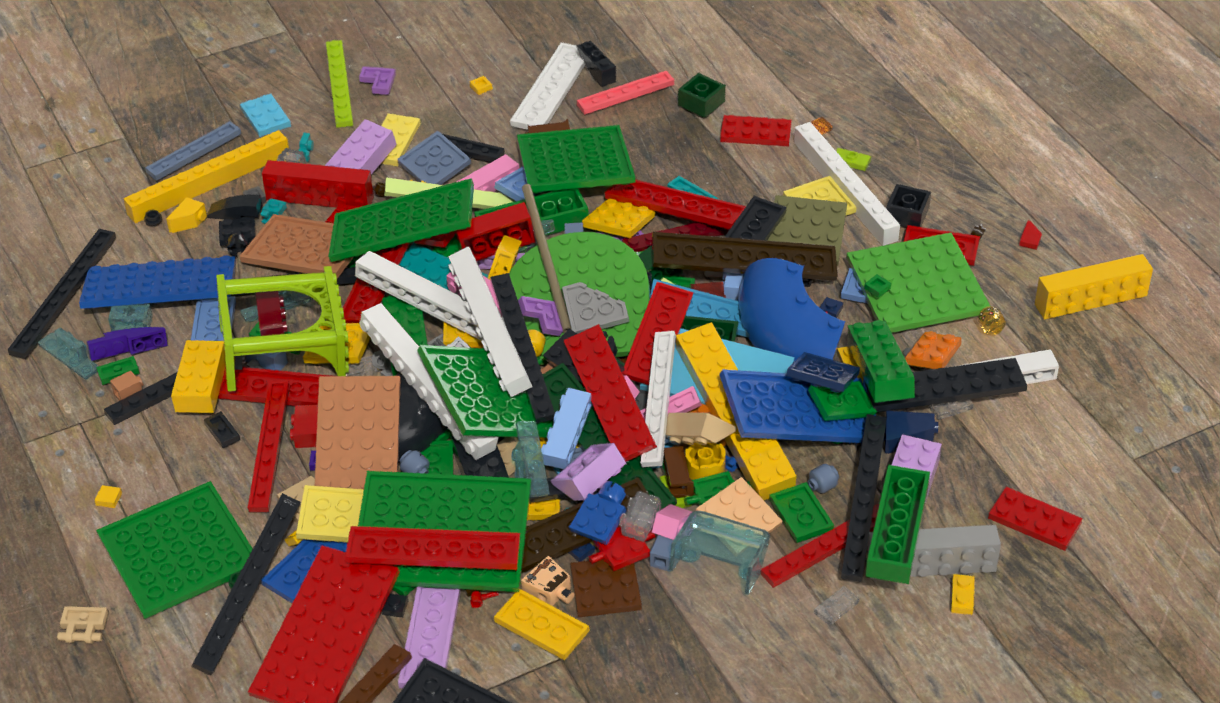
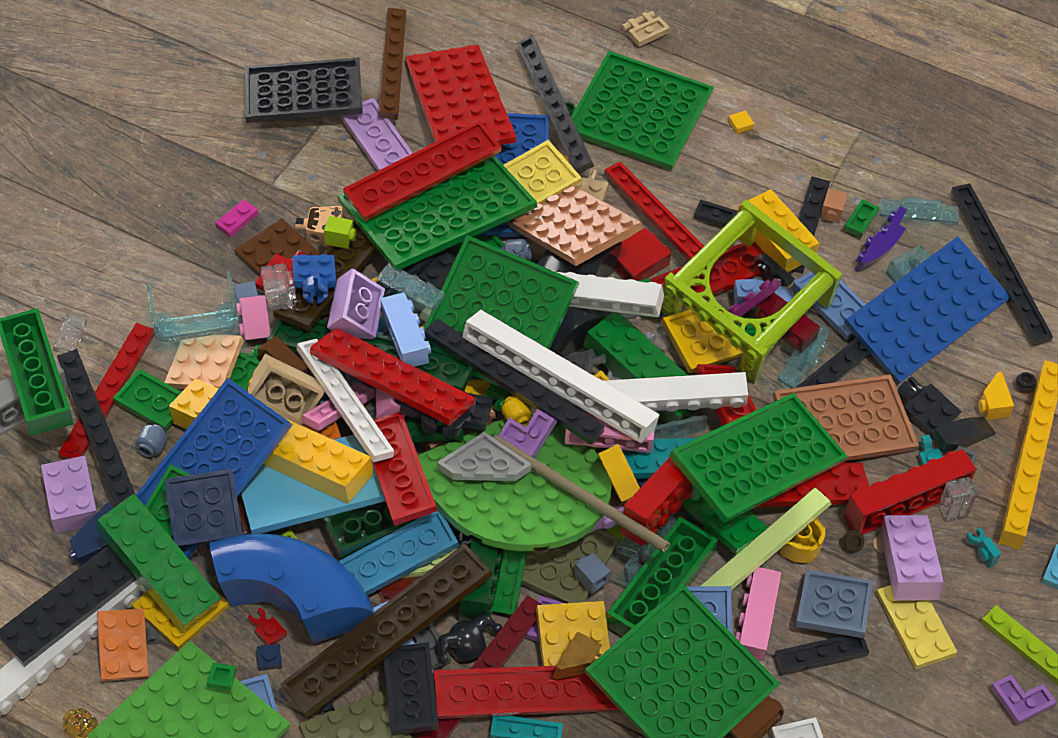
camera: 140 degrees right, 10 degrees up
(272, 325) = (753, 299): none -> magenta plate
(541, 624) = (300, 193): yellow plate -> none
(548, 544) = (339, 232): none -> lime brick
(616, 637) = (236, 218): none -> dark pink plate
(632, 192) = (578, 656): none -> pearl gold slope

